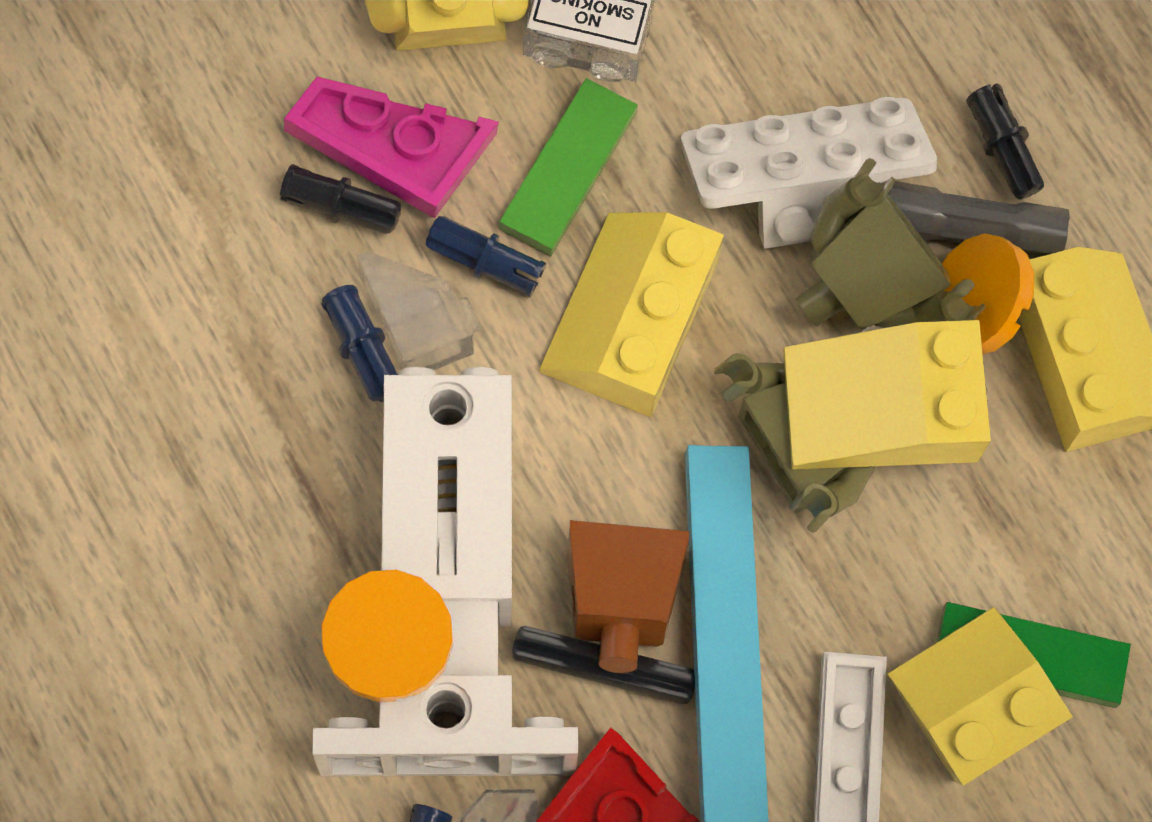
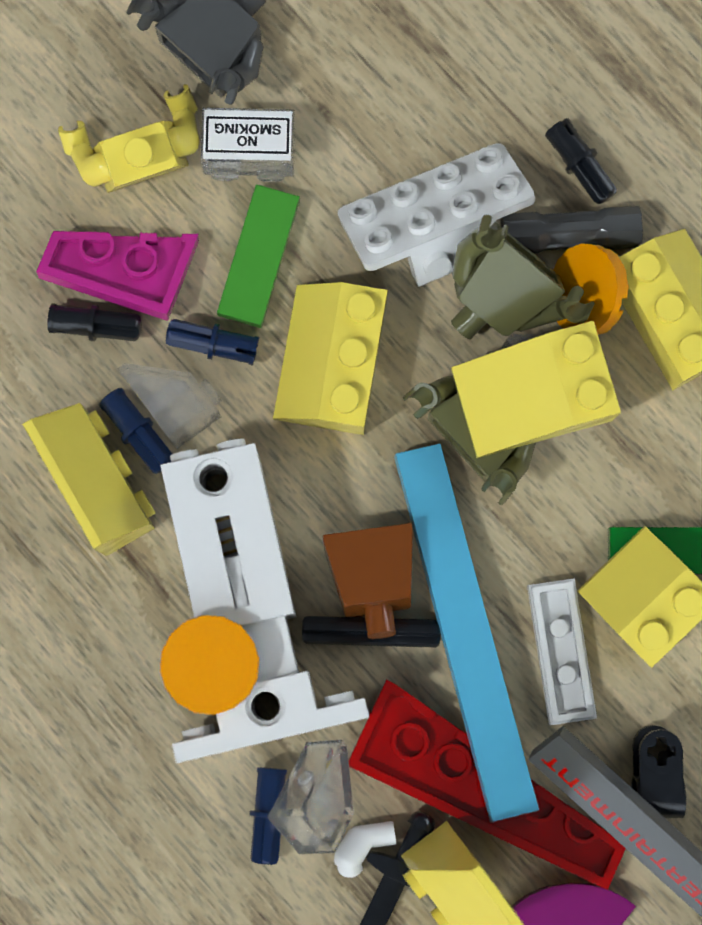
camera: 10 degrees left, 10 degrees up
(292, 383) = (91, 477): none -> light yellow slope

